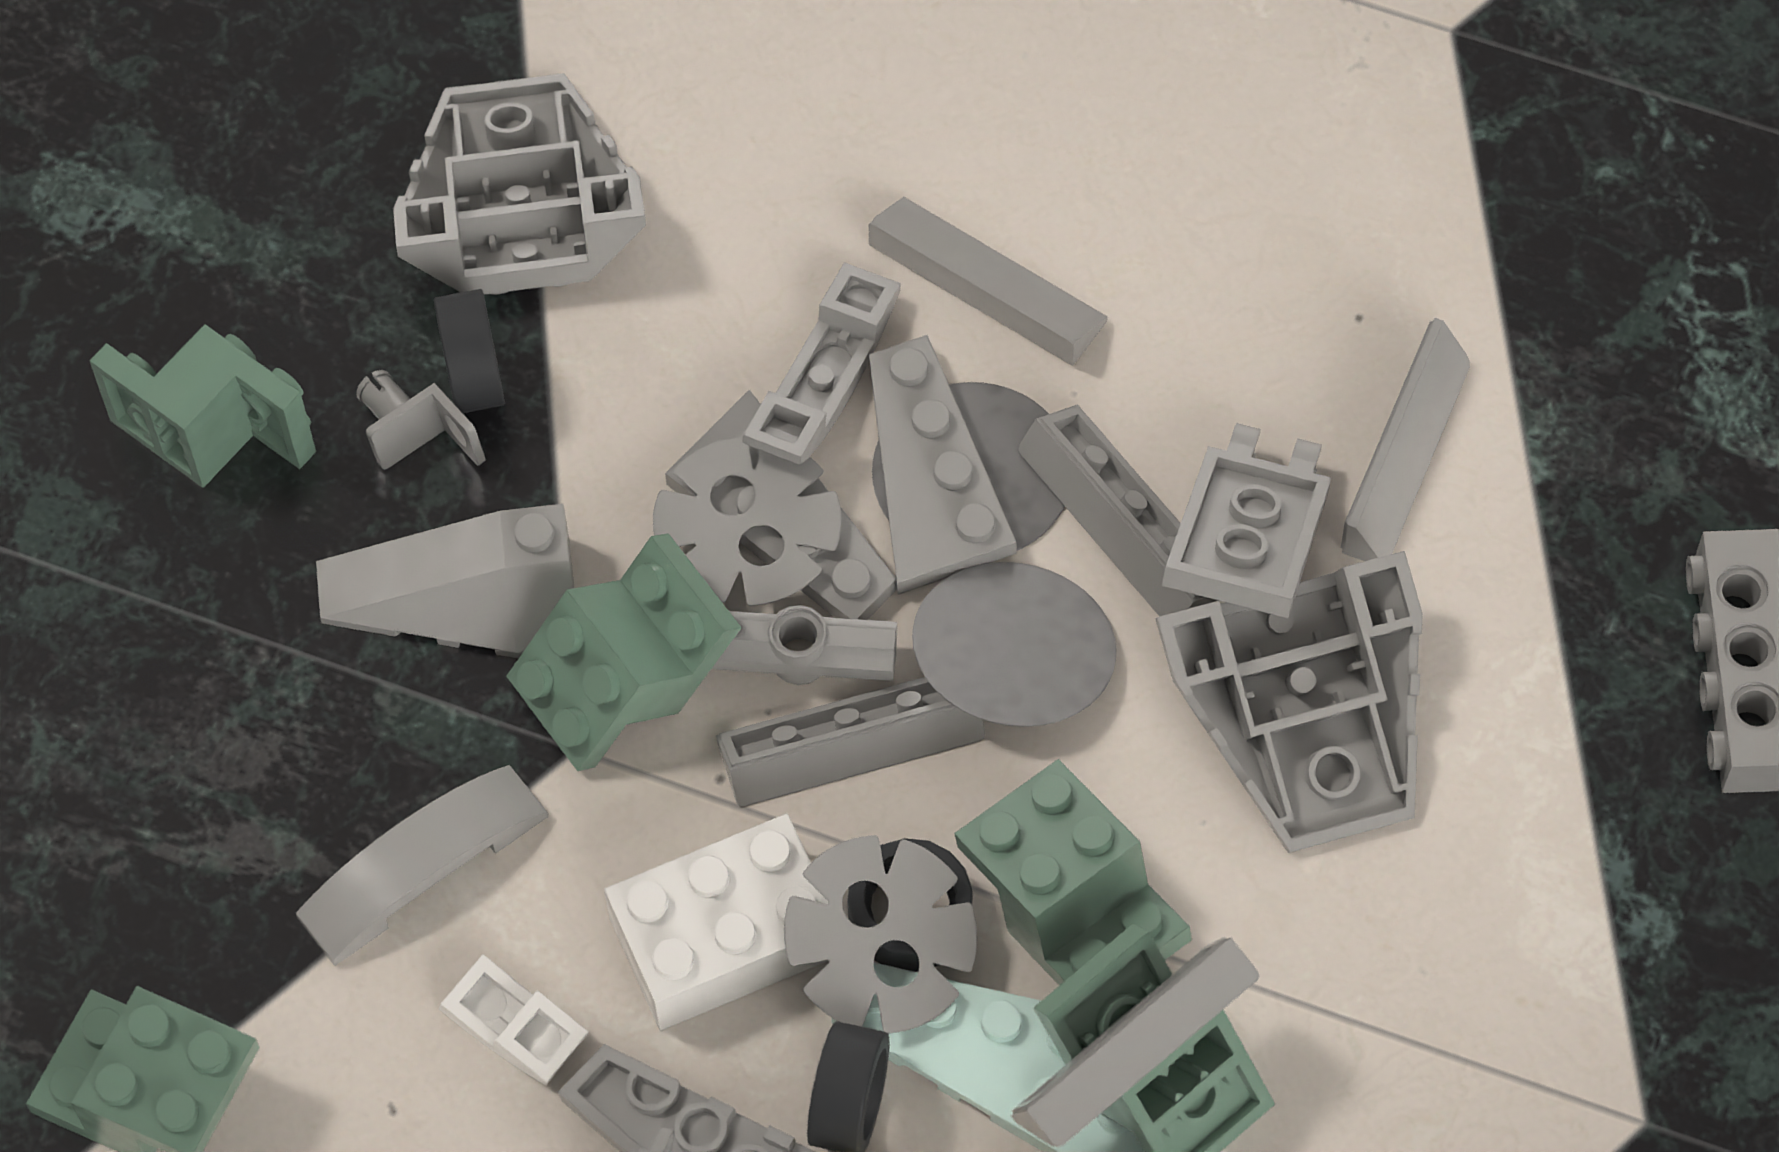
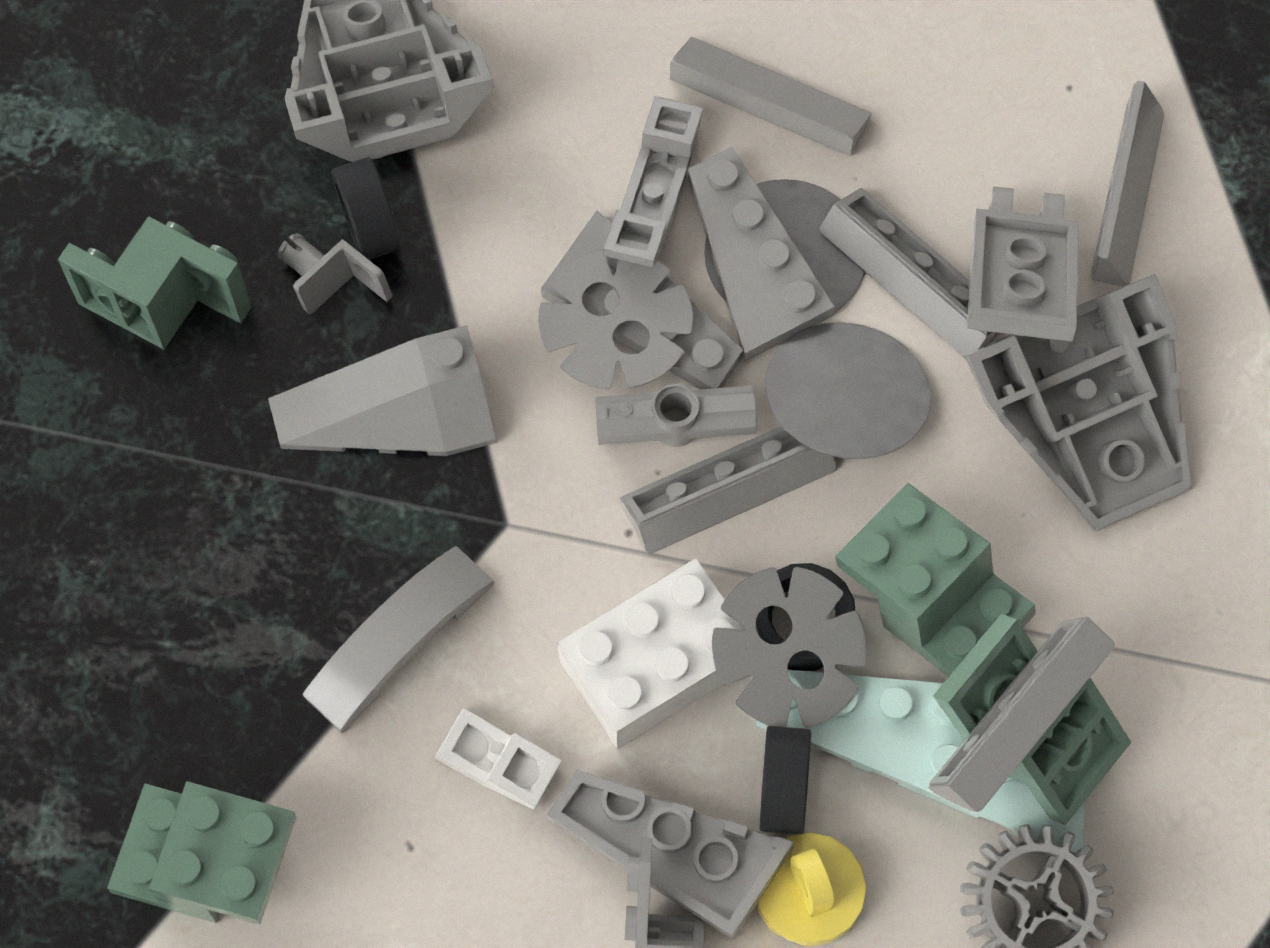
camera: 10 degrees left, 5 degrees up
(623, 651) = (536, 440): sand green bracket -> none

